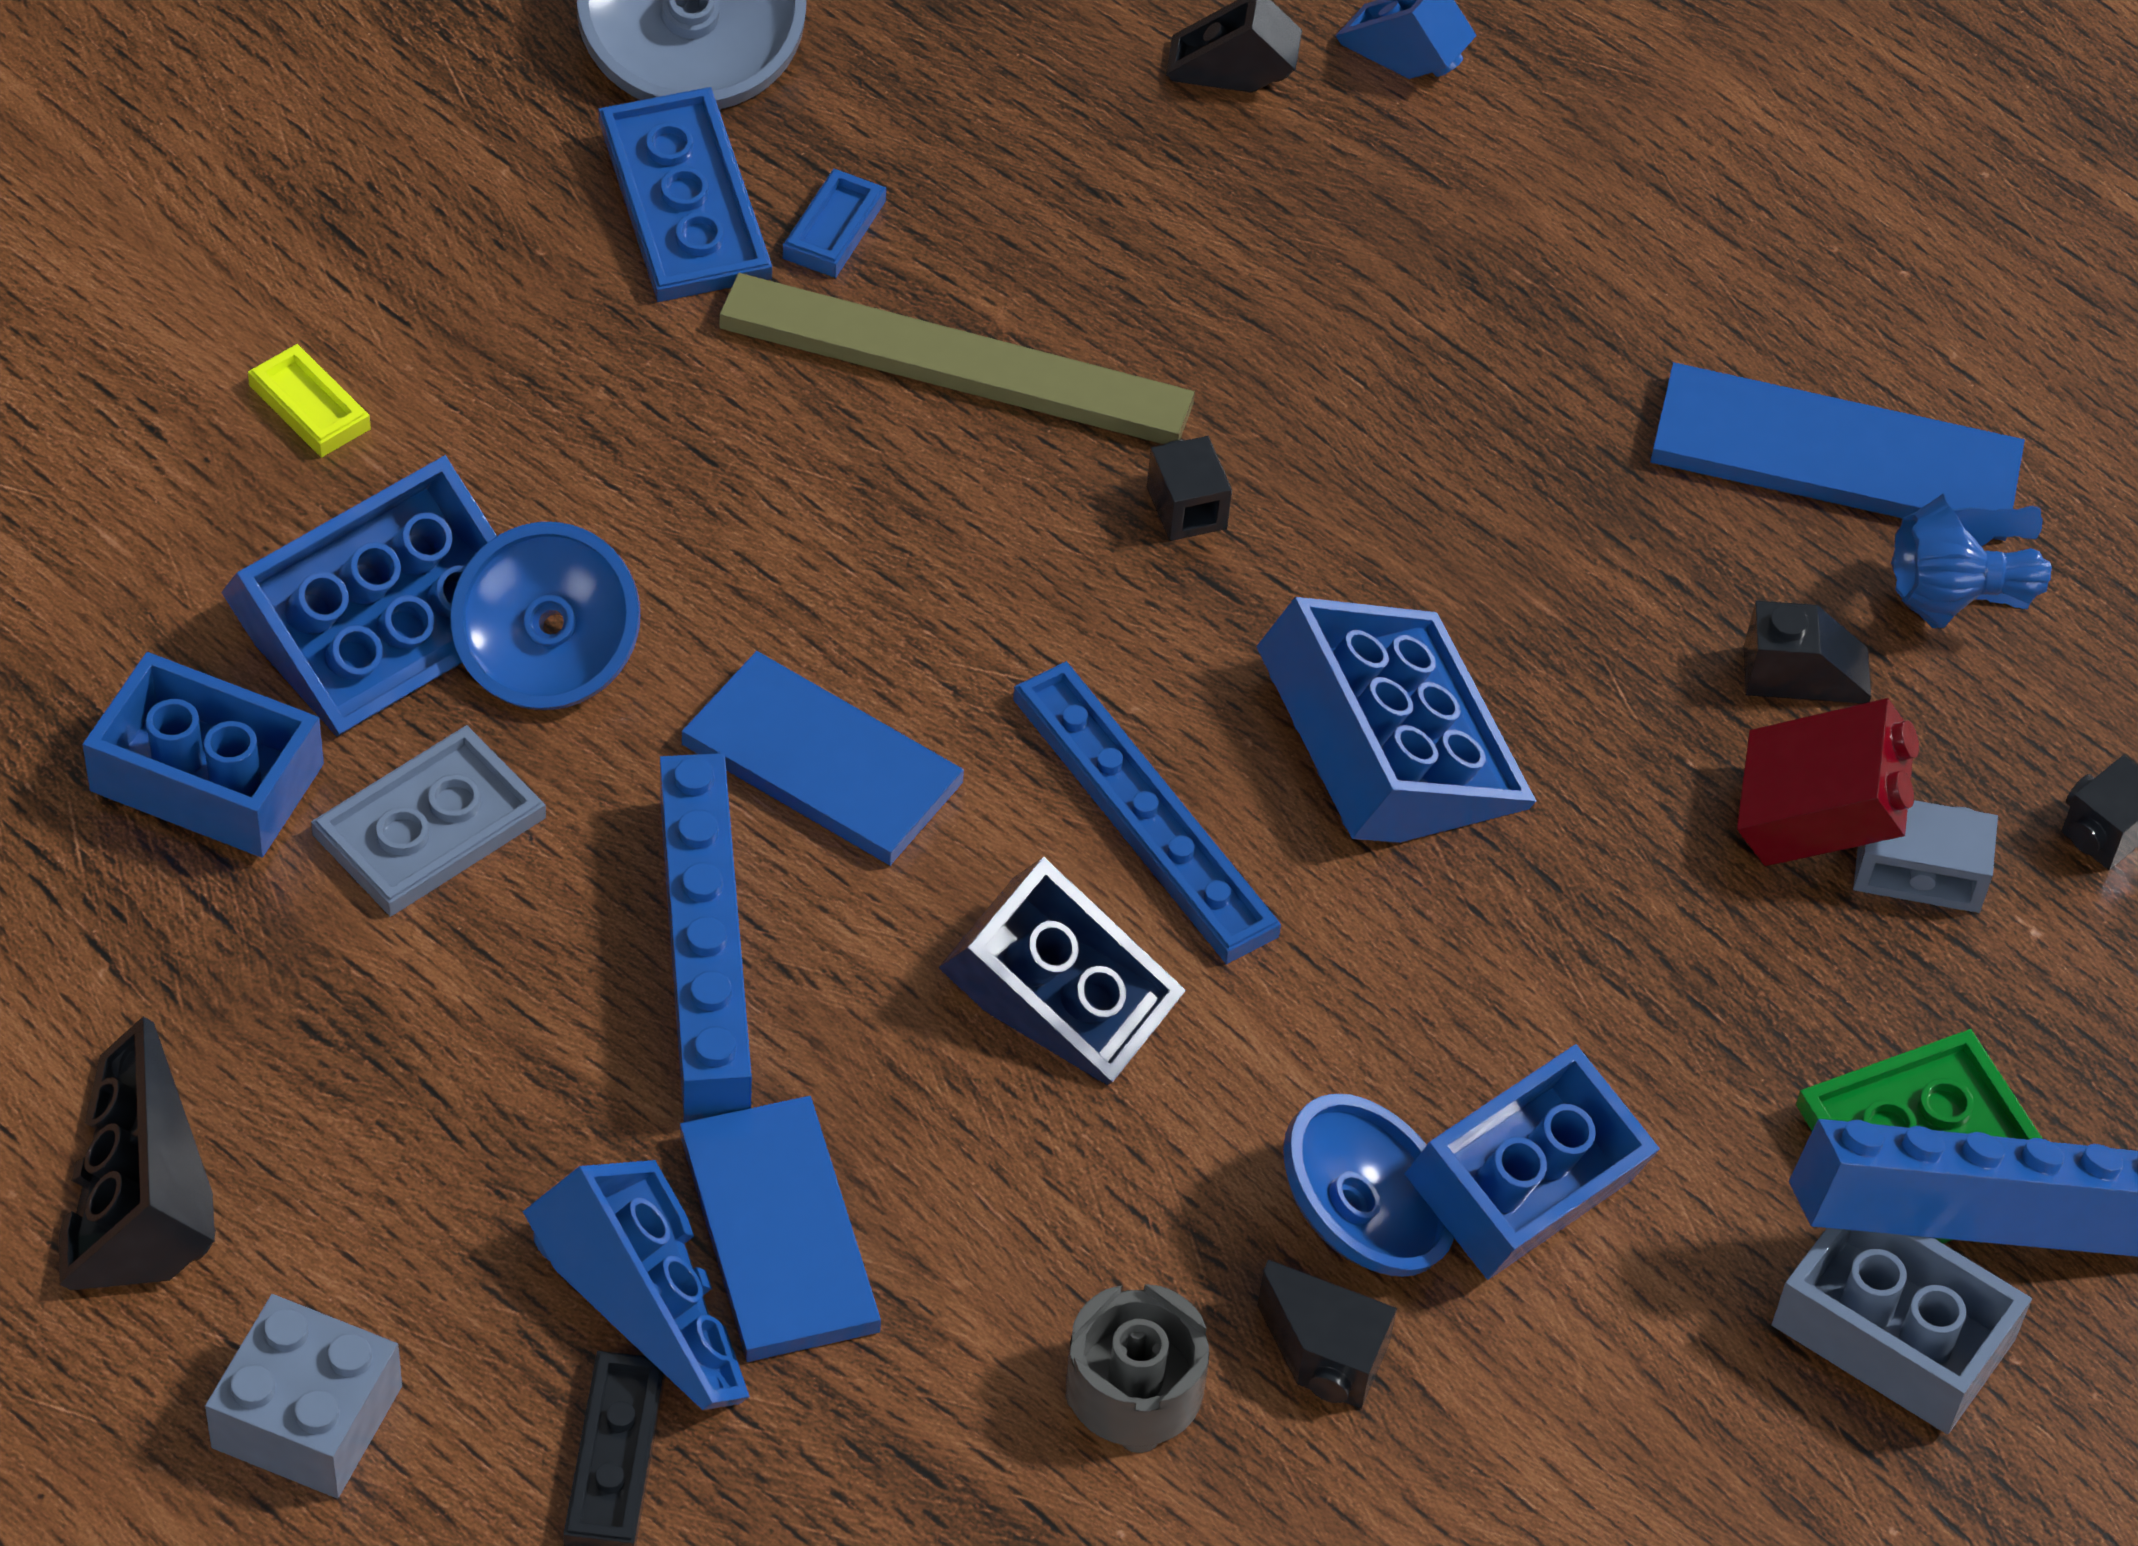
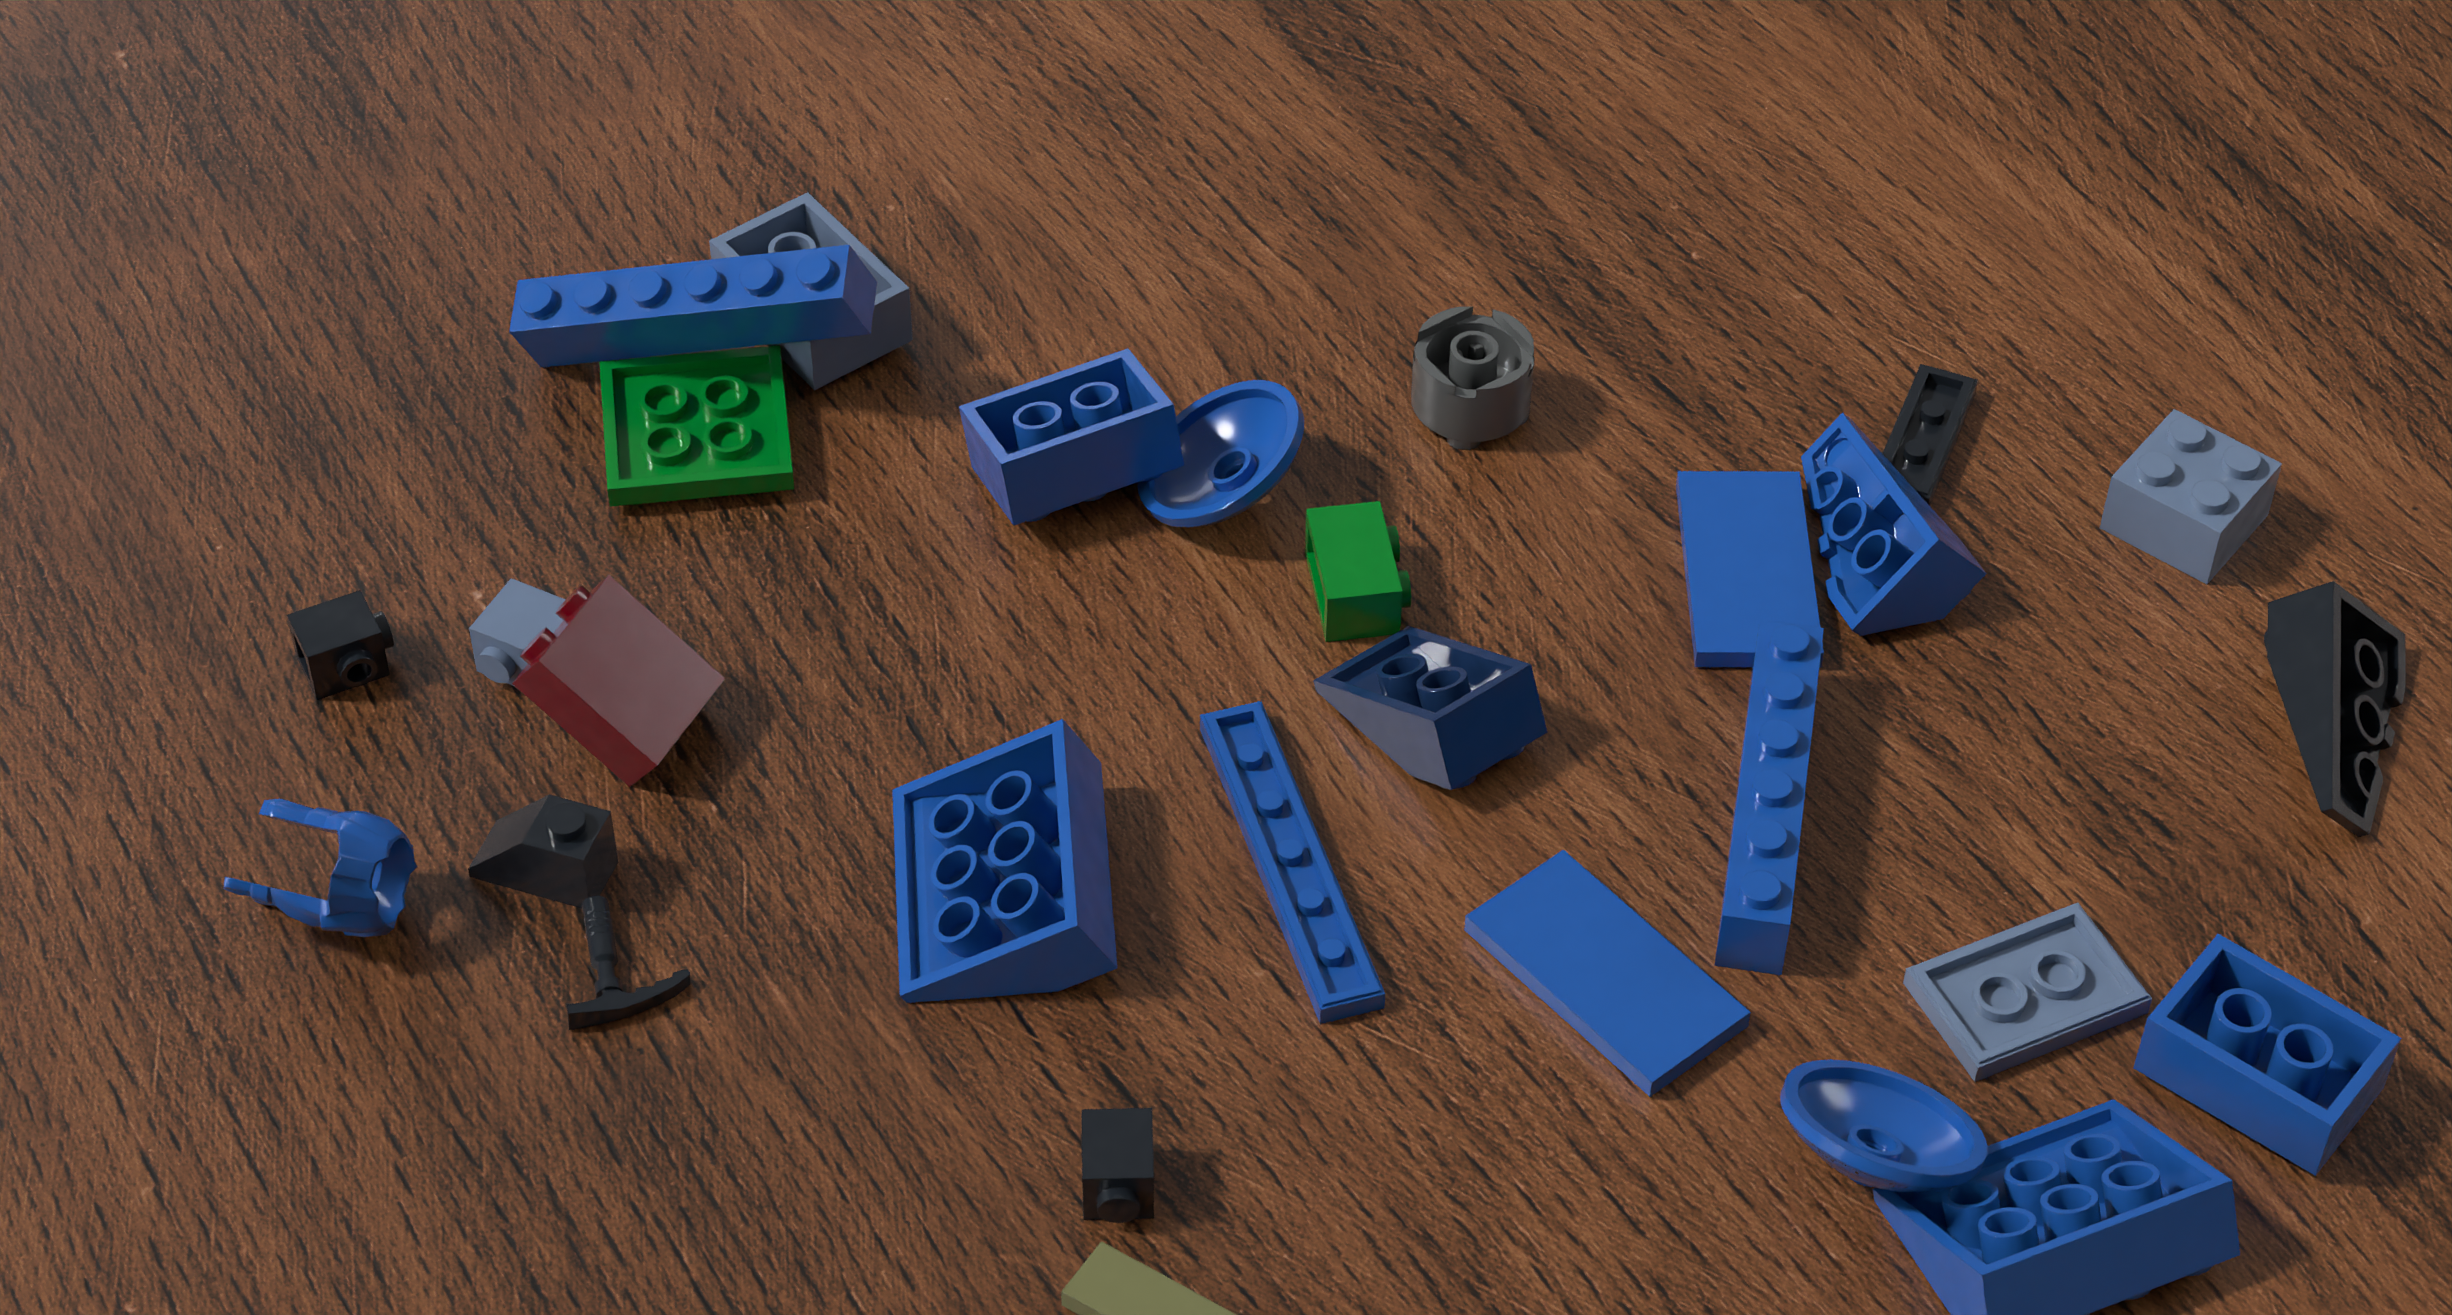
camera: 160 degrees left, 5 degrees down
(1185, 1107) = (1355, 571): none -> green piece
(1325, 1332) = (1308, 371): black slope -> none
(1677, 558) = (610, 1000): none -> black piece
(1830, 446) = (364, 1086): blue tile -> none

